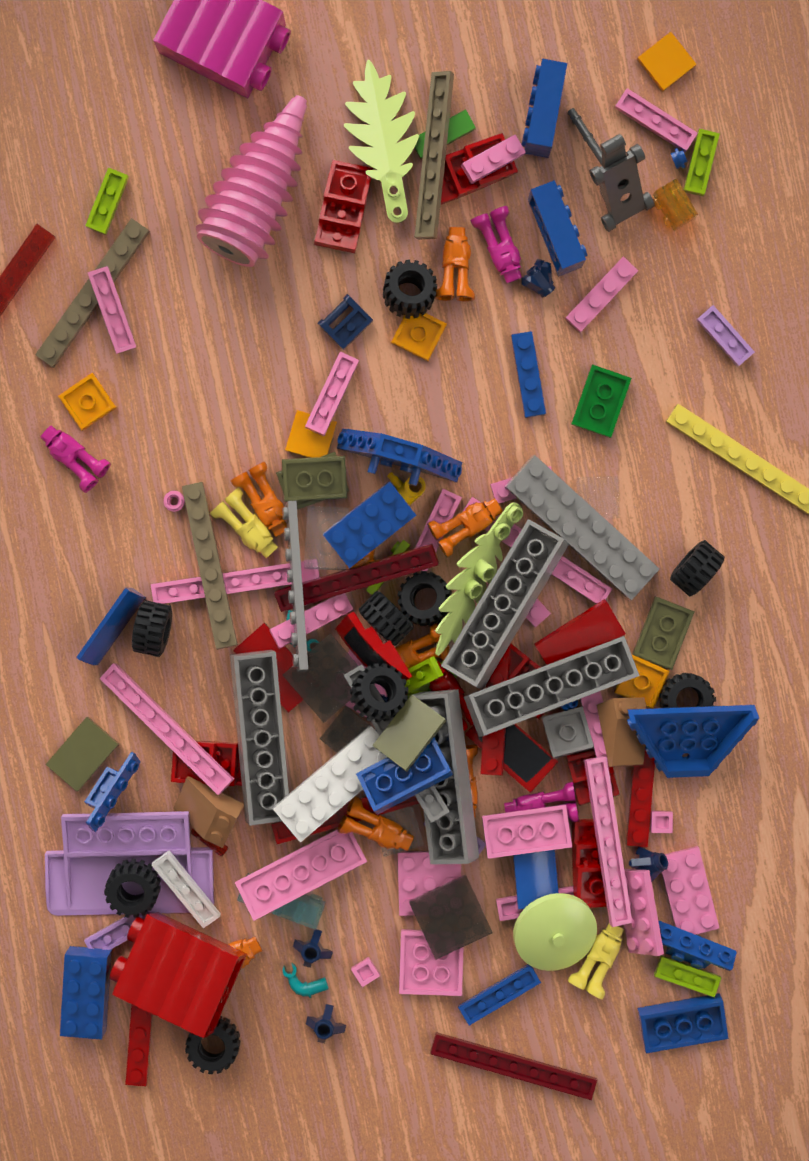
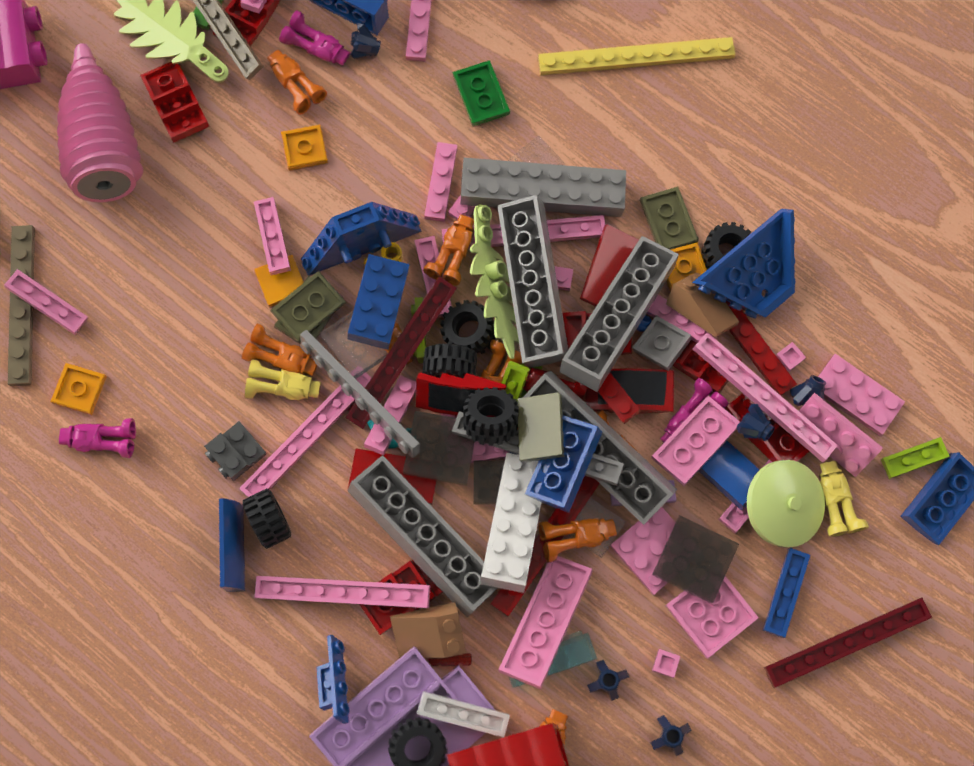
camera: 45 degrees left, 15 degrees down
(82, 754) = (287, 673): olive tile -> none
(167, 501) = (206, 405): bright pink plate -> none
(169, 550) = (234, 451): none -> dark grey plate
(209, 565) = (277, 436): dark tan plate -> none
(304, 989) = (629, 719): teal piece -> none
(348, 328) = (247, 179): dark blue plate -> none
(414, 274) = (271, 117): black tyre -> none
(506, 452) = (440, 181): none -> bright pink plate
(528, 374) = (411, 115): blue plate -> none
(581, 858) = (755, 424): none -> dark blue rock
(695, 949) = (904, 430): blue bracket -> none
(697, 568) = (653, 149): black tyre -> none

